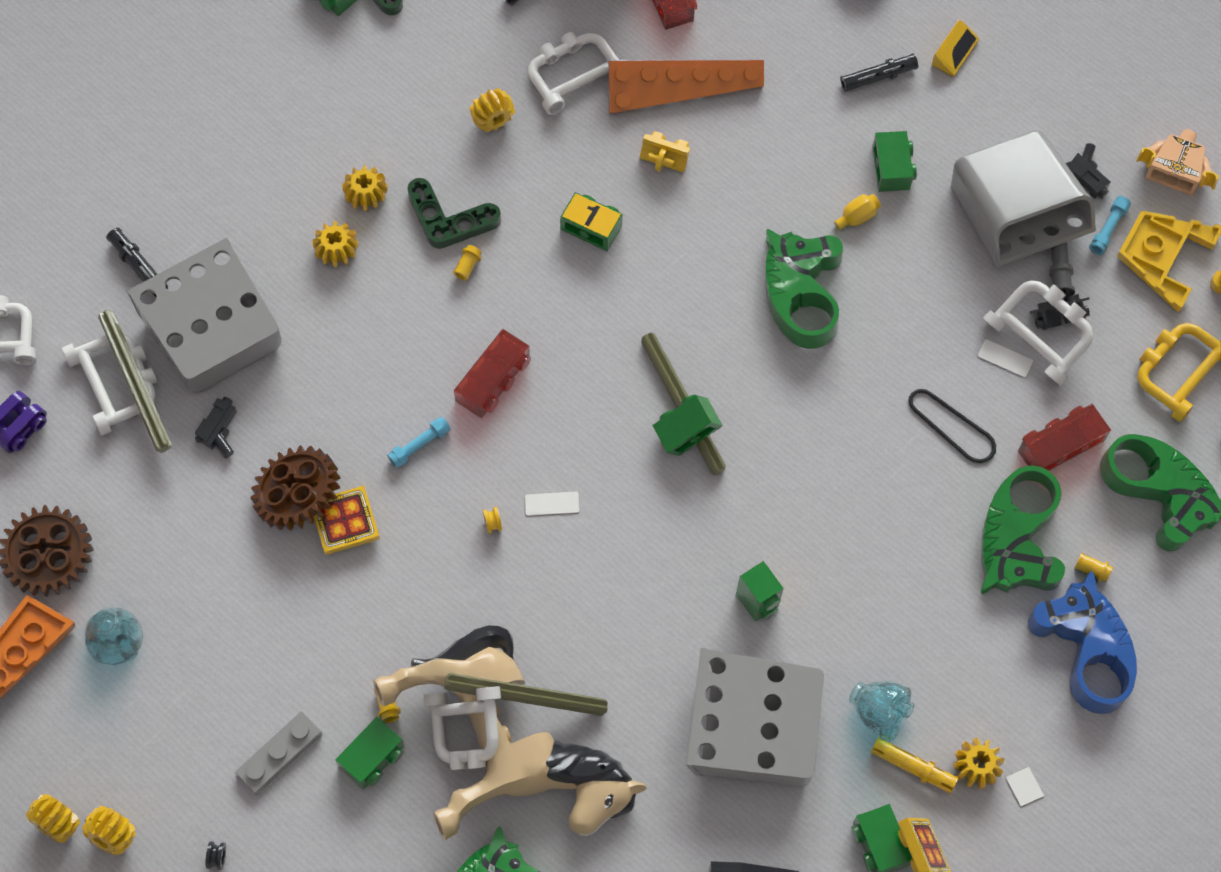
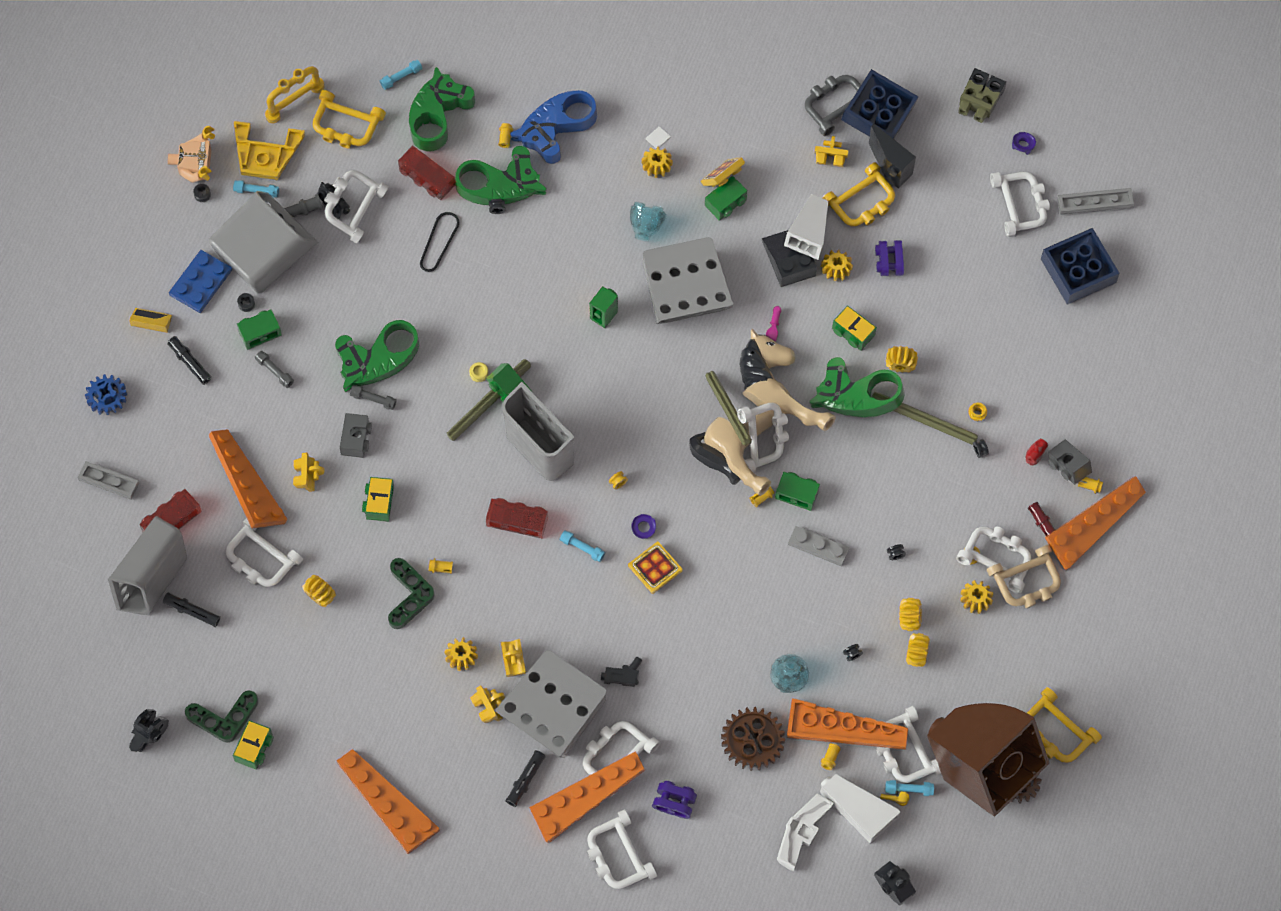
camera: 110 degrees left, 0 degrees up
(73, 305) = (572, 803): none -> orange wing
(99, 731) = (852, 652): none -> black bush
(135, 381) = (609, 740): olive axle -> none
(165, 111) = (398, 814): none -> orange wing
(256, 252) = (484, 697): none -> yellow hips
(295, 488) = (631, 607): reddish brown gear -> none
(298, 298) = (513, 658): none -> yellow hips
(364, 187) = (417, 649): yellow gear -> none
(407, 520) = (643, 518): none -> dark purple piece
(552, 503) = (589, 454): white sticker -> none
(587, 417) = (537, 433): none -> light grey piece
(636, 823) = (772, 331): none -> dark pink piece
(690, 211) = (354, 425): none -> dark grey brick
(730, 406) = (479, 372): none -> light yellow tile
(756, 249) = (388, 402): none -> dark grey bar
(849, 155) = (284, 378): none -> dark grey bar
(858, 211) = (305, 339): yellow plant -> none
(925, 771) = (672, 195): yellow pin -> none
(939, 169) = (245, 297): none -> black bush
(979, 514) = (497, 206): none -> black bush
(988, 115) = (200, 281): none -> blue plate
(1005, 358) = (377, 225): white sticker -> none
(1087, 174) = (220, 215): black piece -> none
(1125, 168) = (203, 198): none -> black bush

